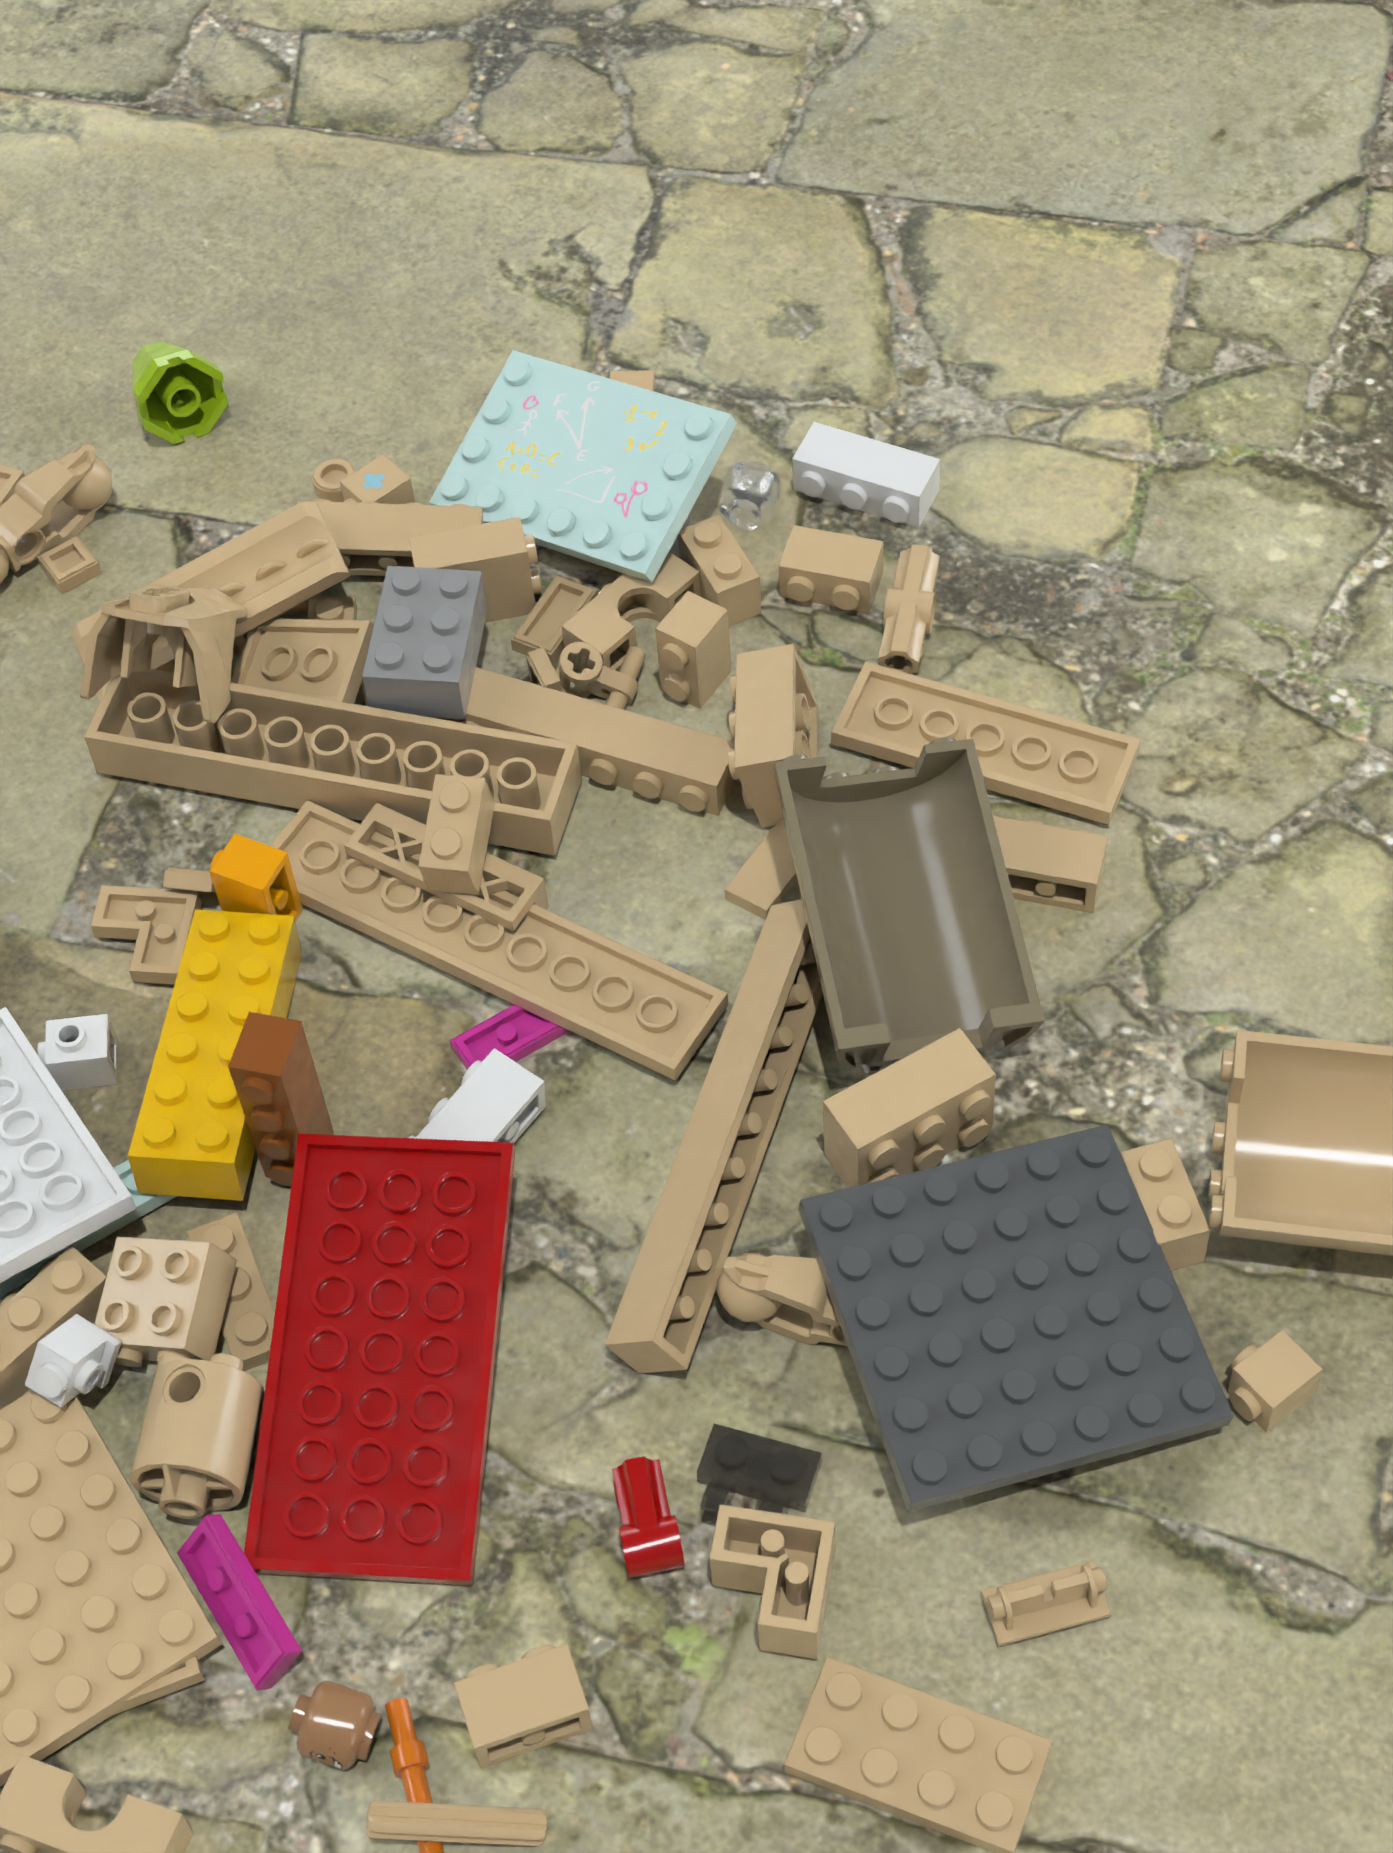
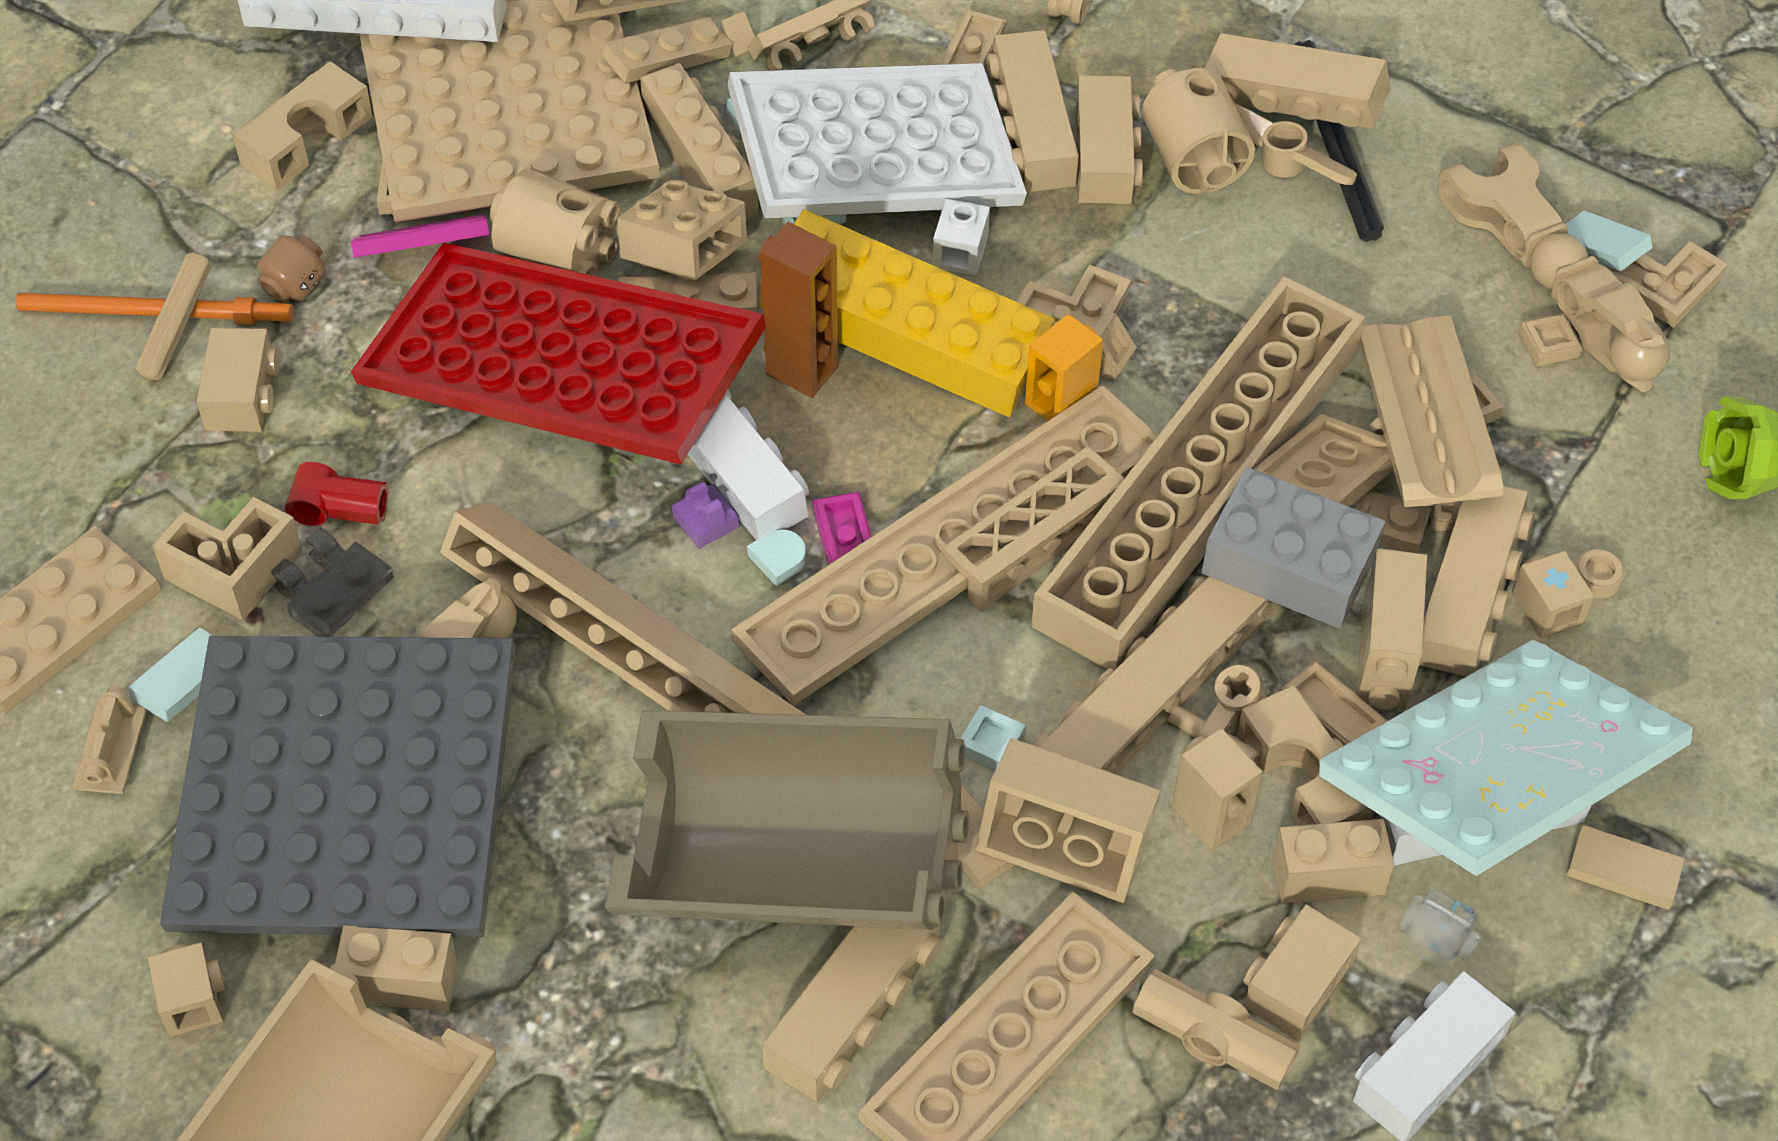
camera: 105 degrees right, 0 degrees up
(72, 1361) = (650, 156): white brick -> none
(196, 625) = (1348, 337): tan piece -> none
(456, 834) = (1035, 504): tan brick -> none
(535, 1164) = (705, 514): none -> medium lavender tile
(541, 670) = (1254, 657): tan tile -> none
(561, 1080) = (778, 555): none -> light aqua tile
(692, 848) = (989, 735): none -> light aqua tile
(910, 1112) = (578, 784): tan brick -> none
(932, 1567) = (174, 679): none -> light aqua tile

